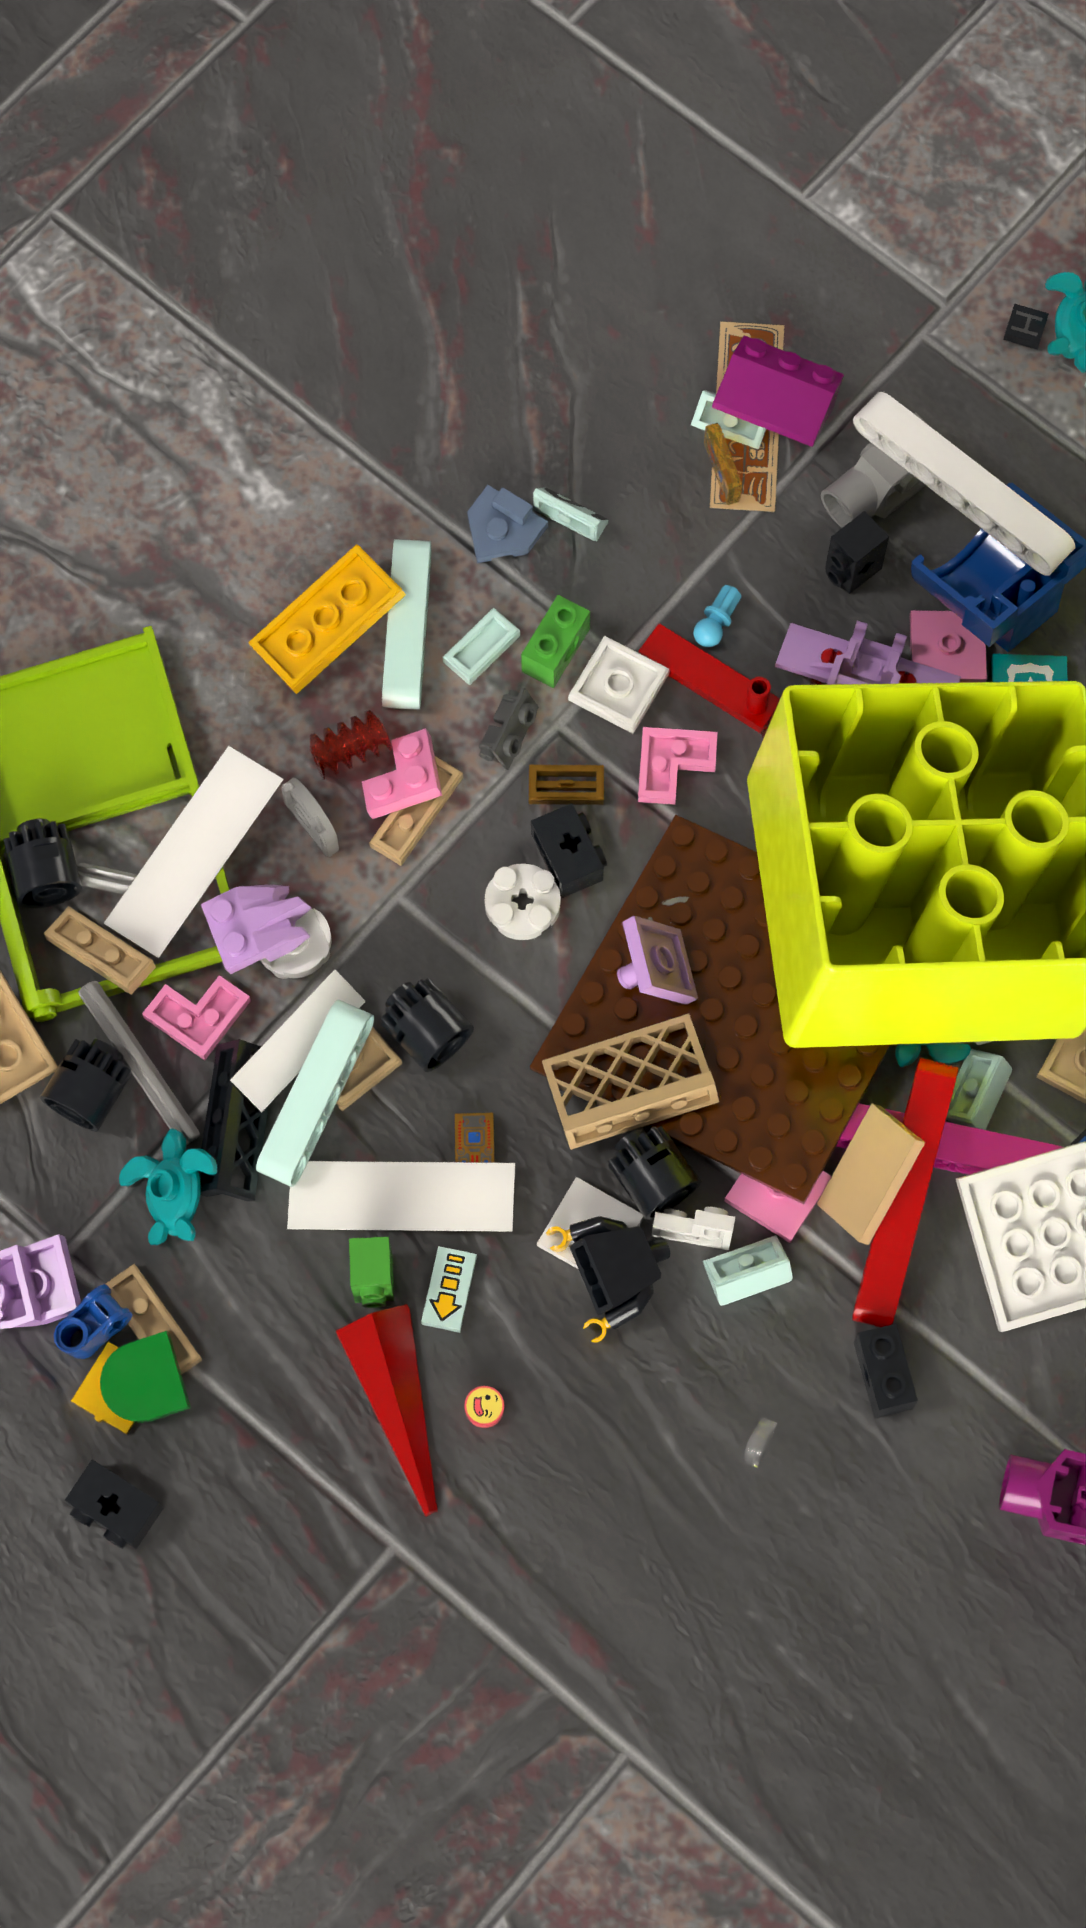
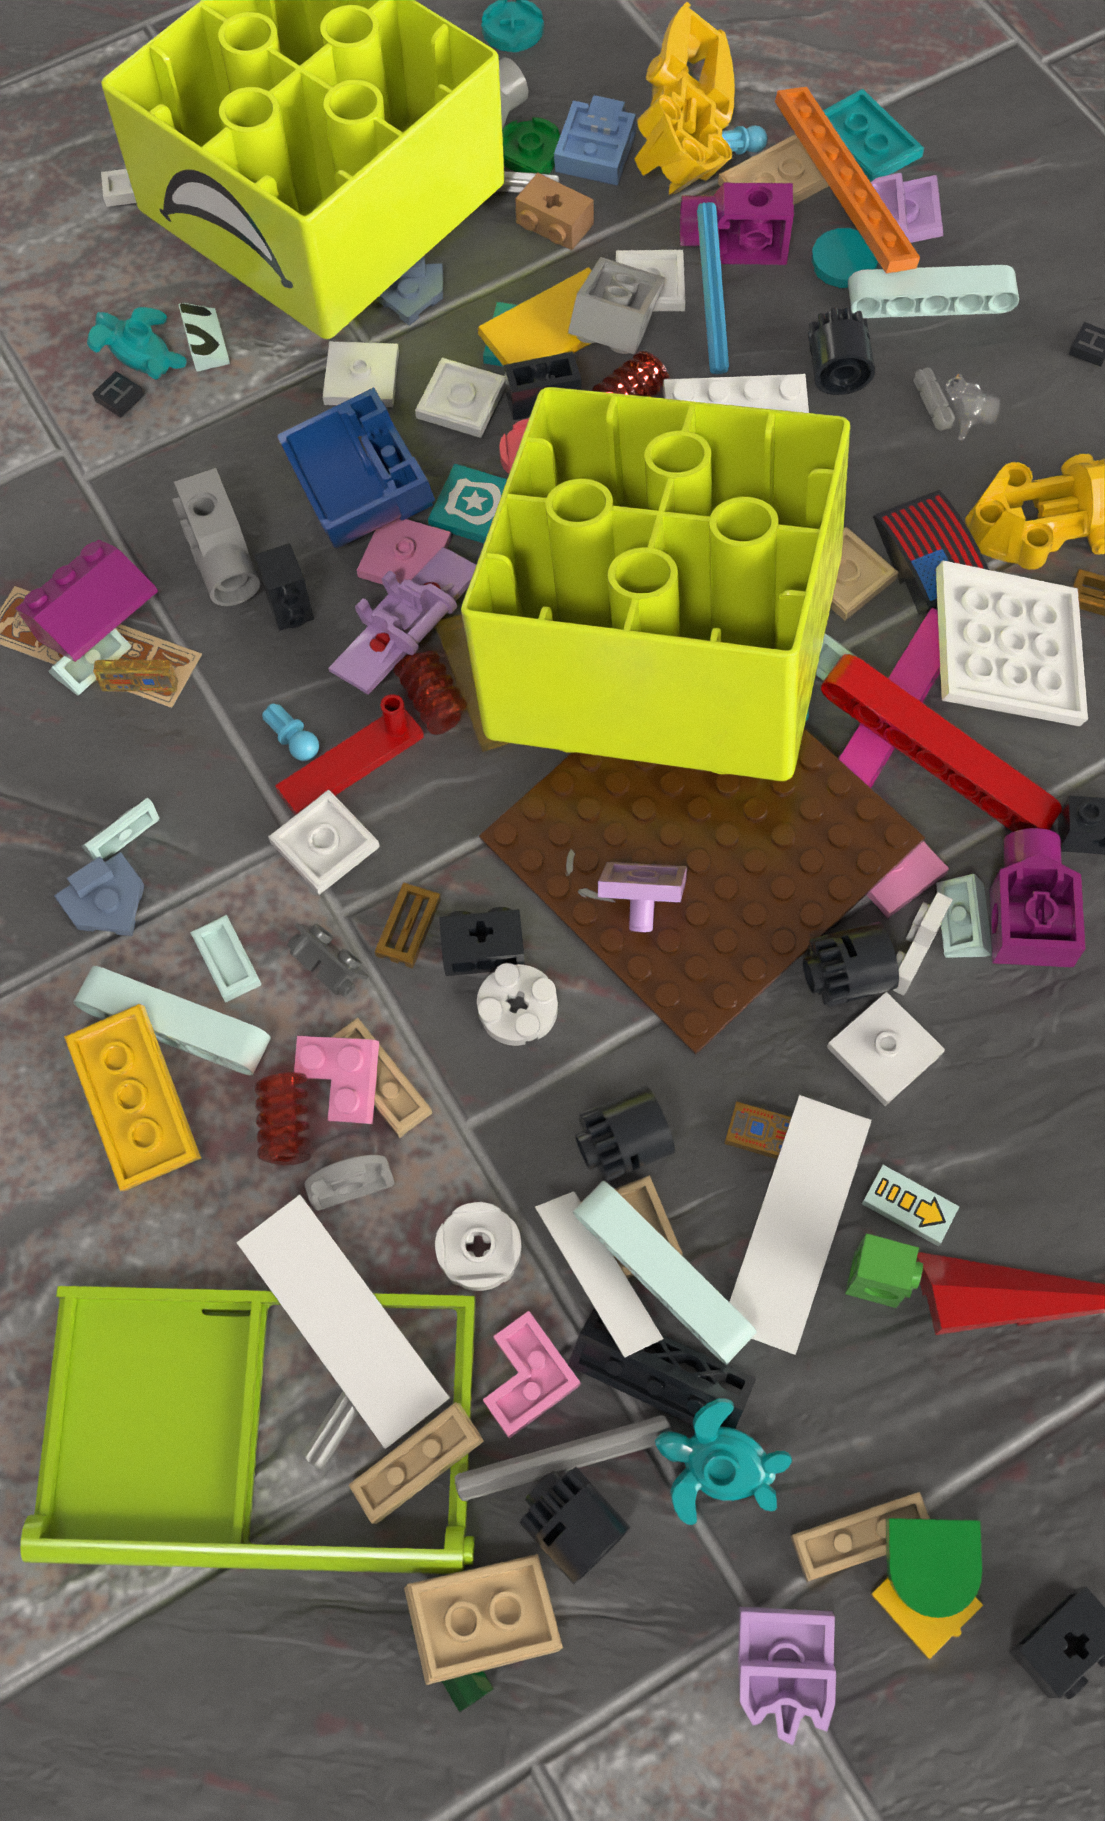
camera: 70 degrees left, 5 degrees down
(42, 864) = (290, 1497): black gear -> none
(94, 1321) = (852, 1597): blue piece -> none
(255, 924) = (453, 1277): lavender plate -> none
(484, 1406) = (1044, 1209): tile -> none
(555, 641) = (255, 882): bright green brick -> none
(615, 1267) = (943, 1029): black torso -> none
(646, 1105) = (785, 962): tan fence -> none
(667, 752) = (415, 821): bright pink plate -> none
(777, 1323) = (1036, 903): none -> magenta brick
(870, 1173) = (918, 767): tan tile -> none
(964, 483) = (266, 460): white beam -> none

